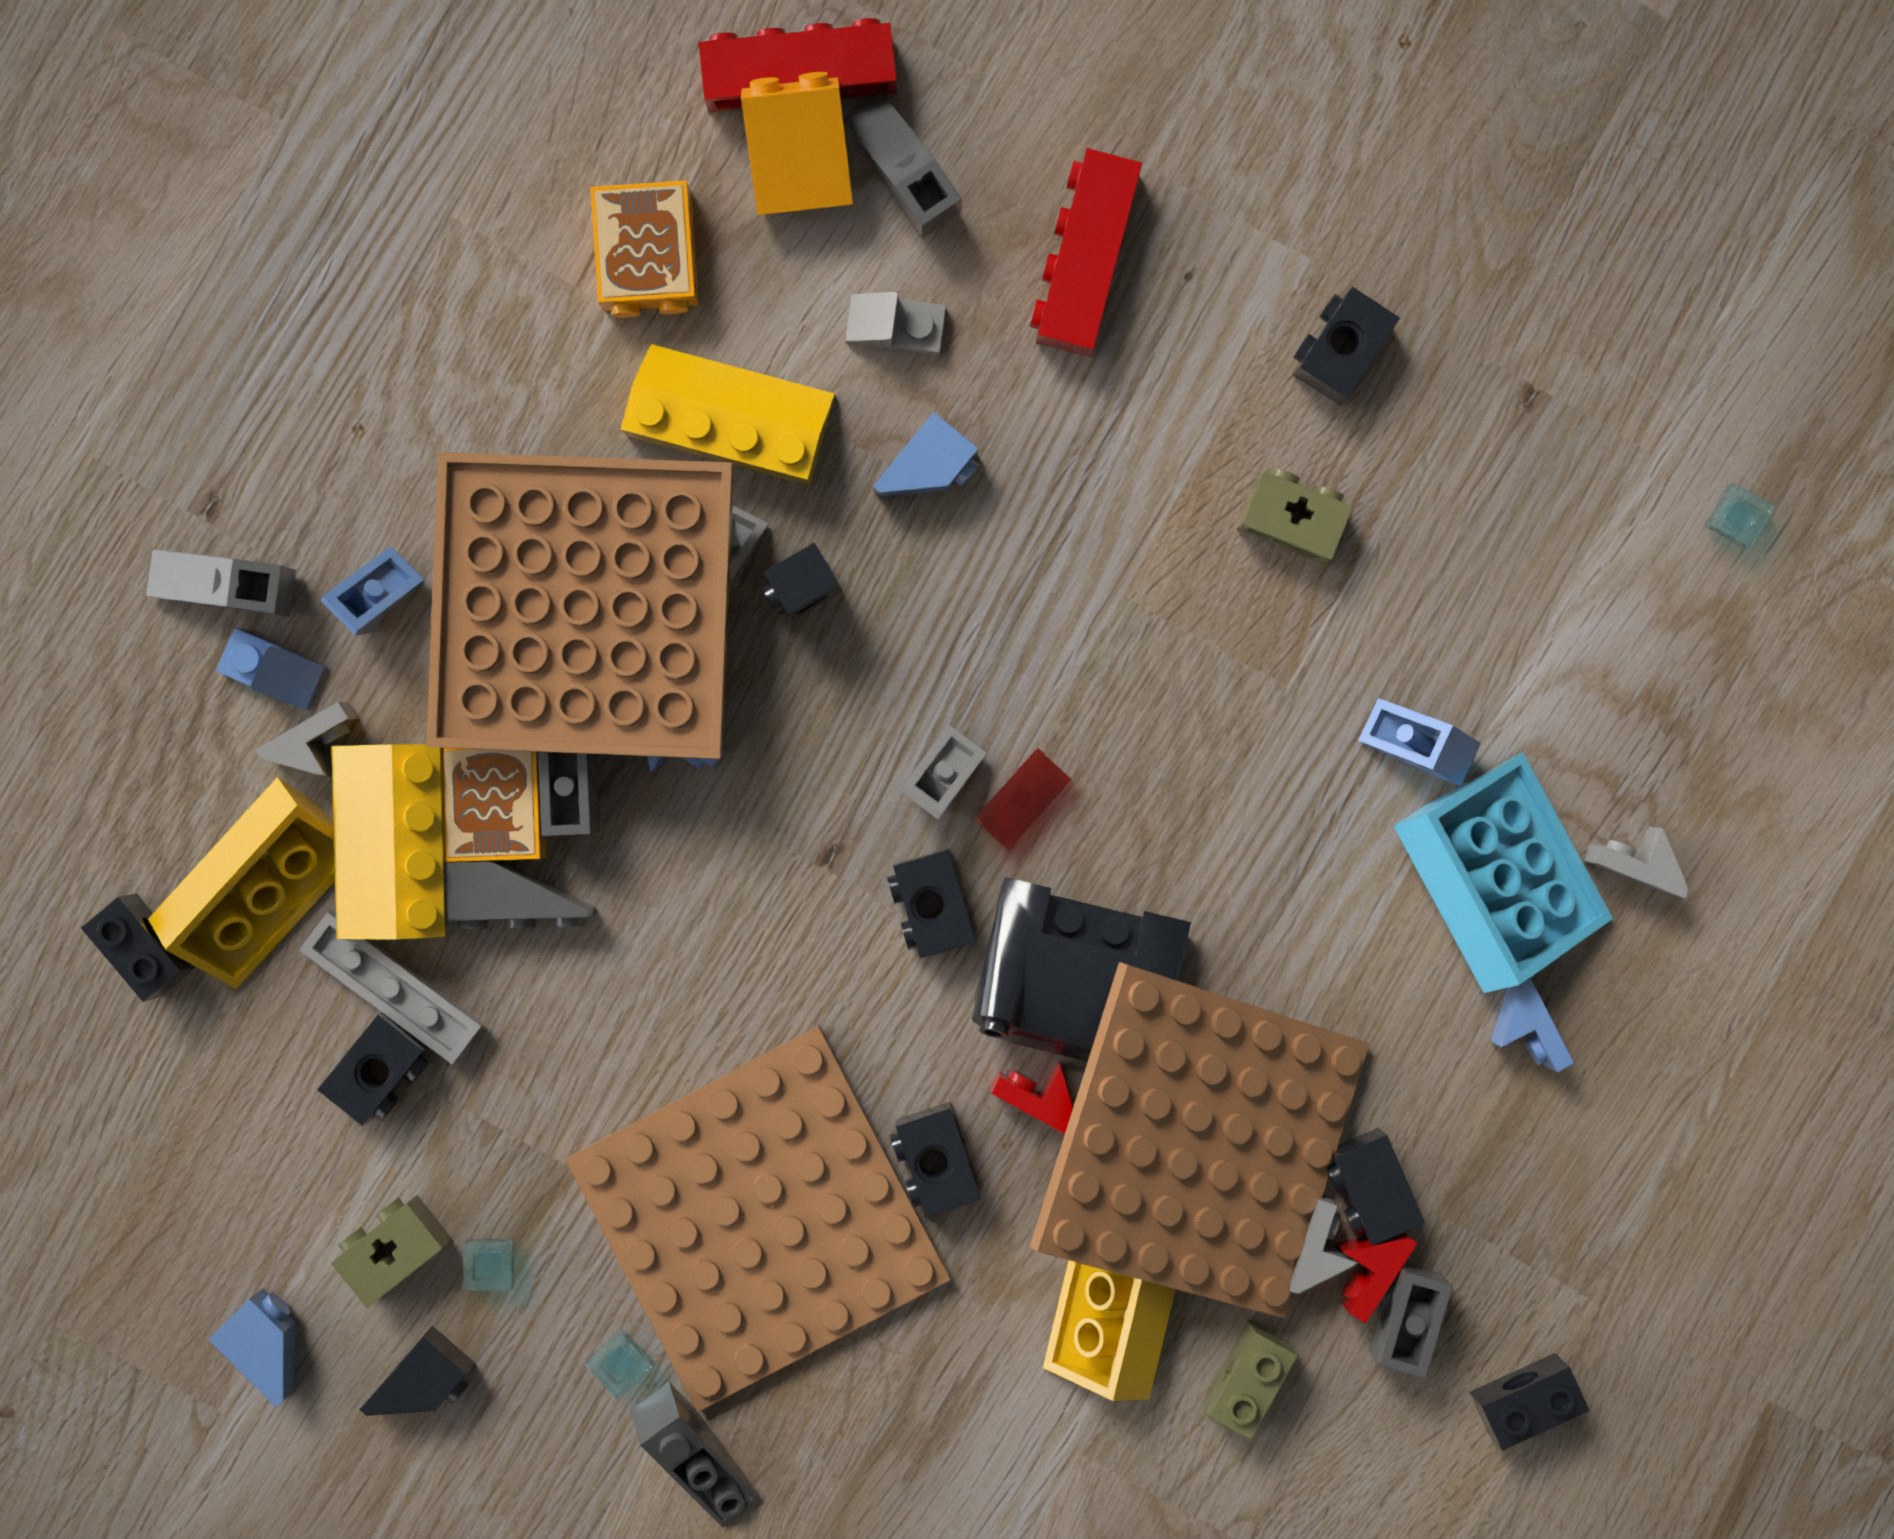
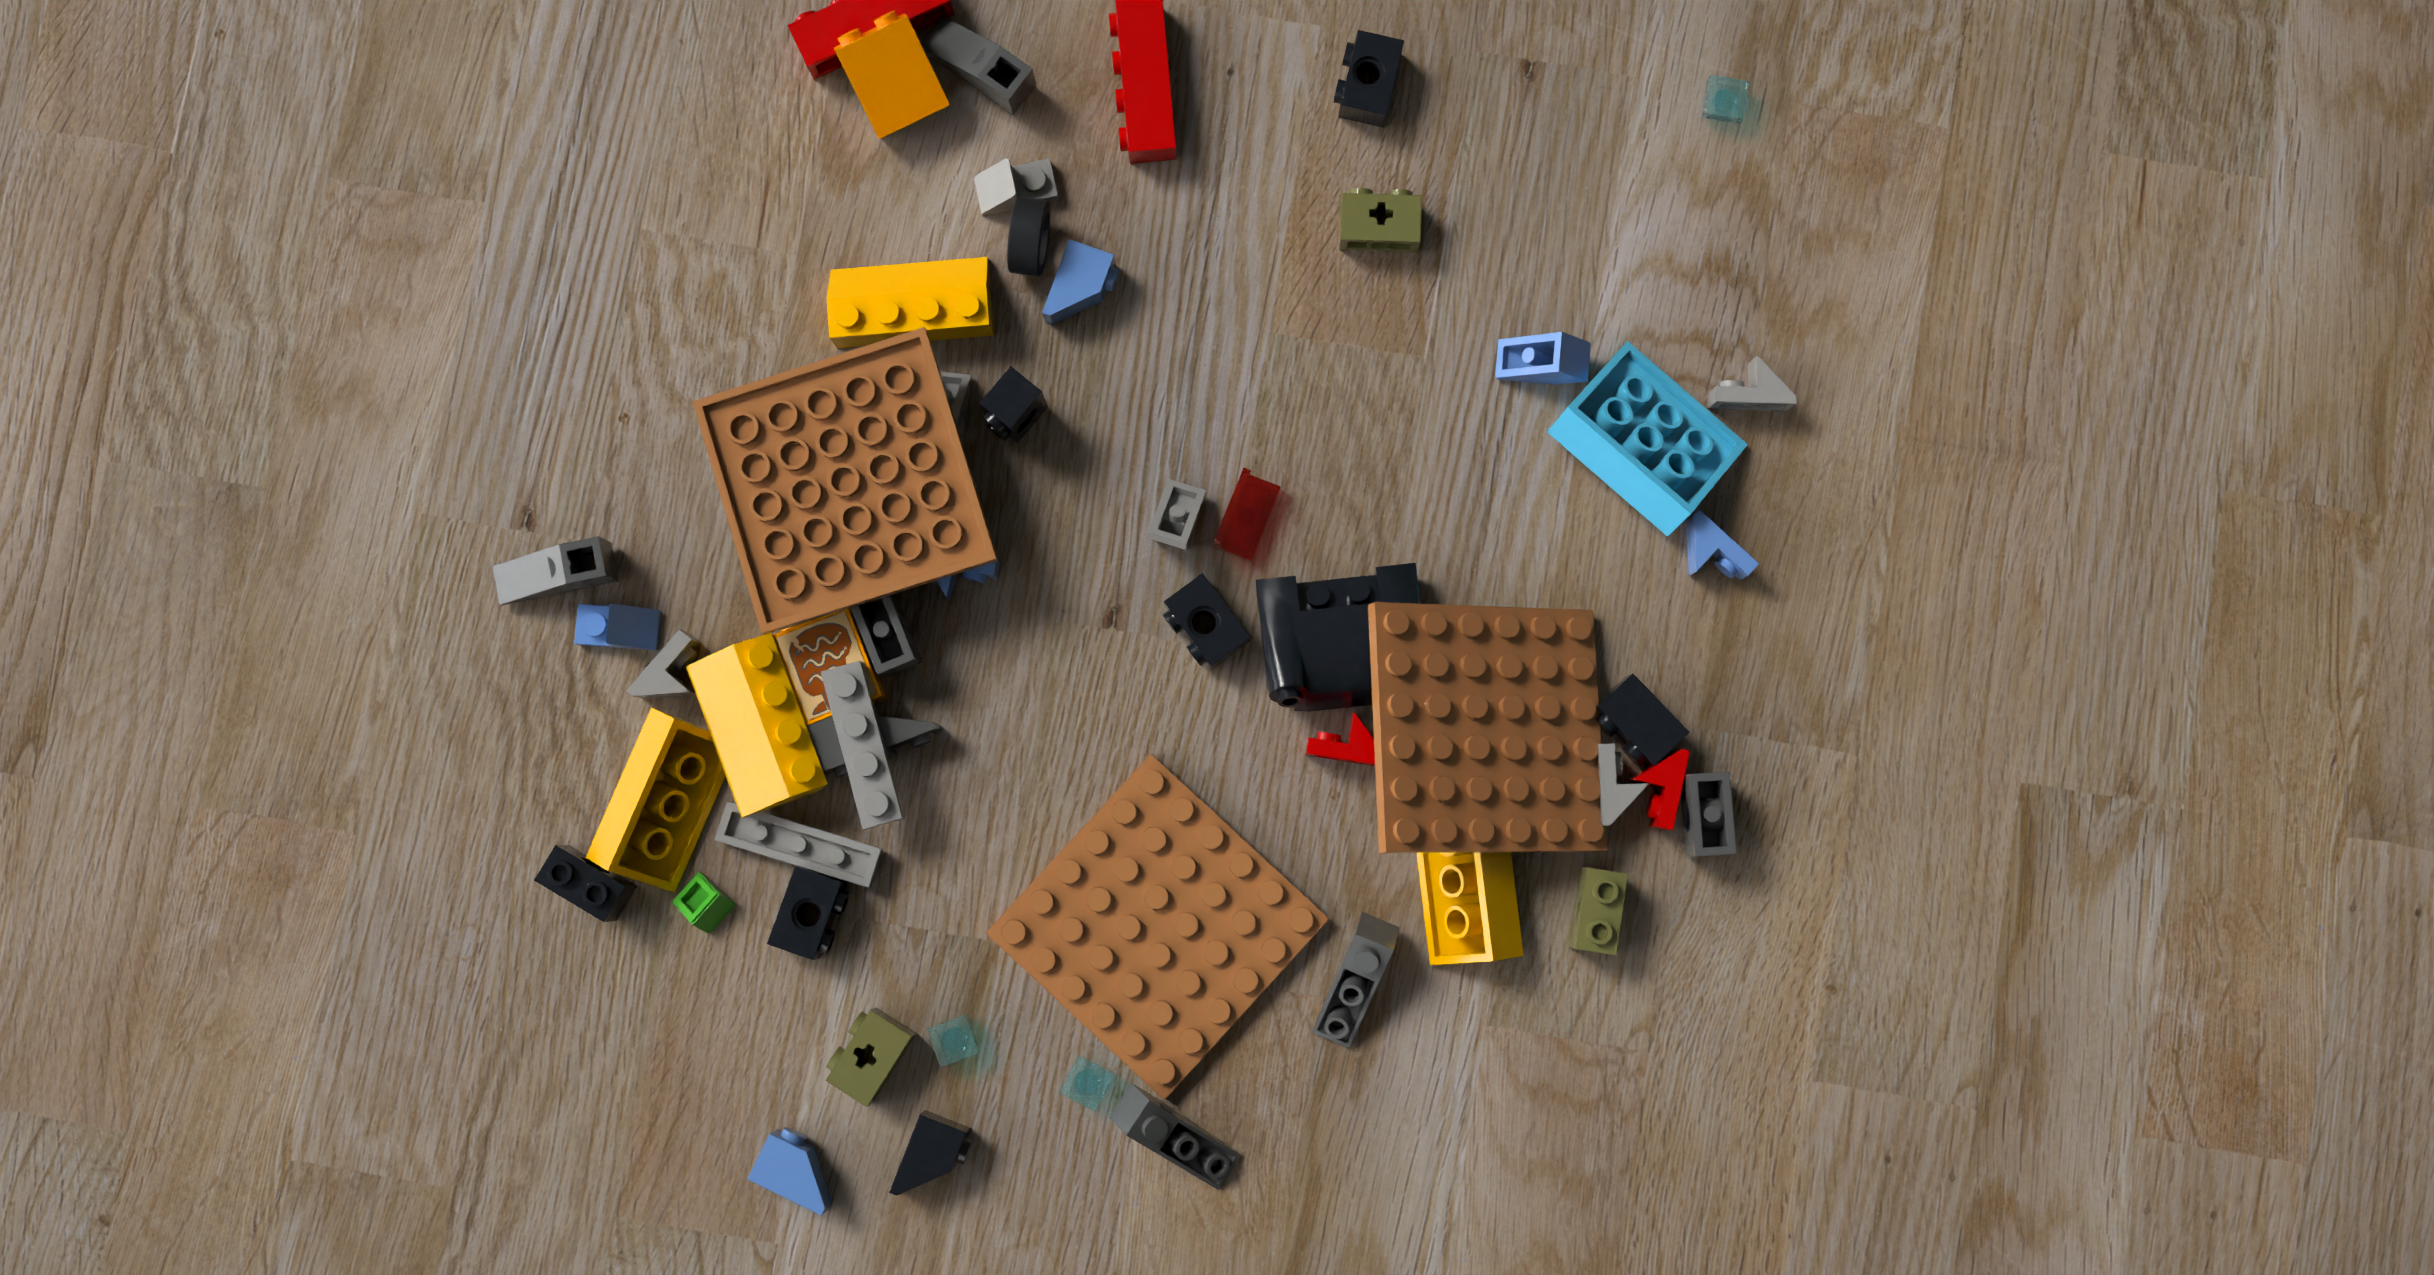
camera: 15 degrees left, 5 degrees down
(263, 1012) = (703, 903): none -> bright green slope
(373, 592) = (678, 535): medium blue slope -> none
(498, 908) = (862, 745): none -> light grey plate
(644, 248) = (800, 196): brick -> none
(888, 391) = (1028, 236): none -> black tyre
(941, 1189) = (1305, 835): black brick -> none
(957, 1355) = (1356, 979): none -> dark grey slope
(1529, 1401) = (1828, 848): black brick -> none

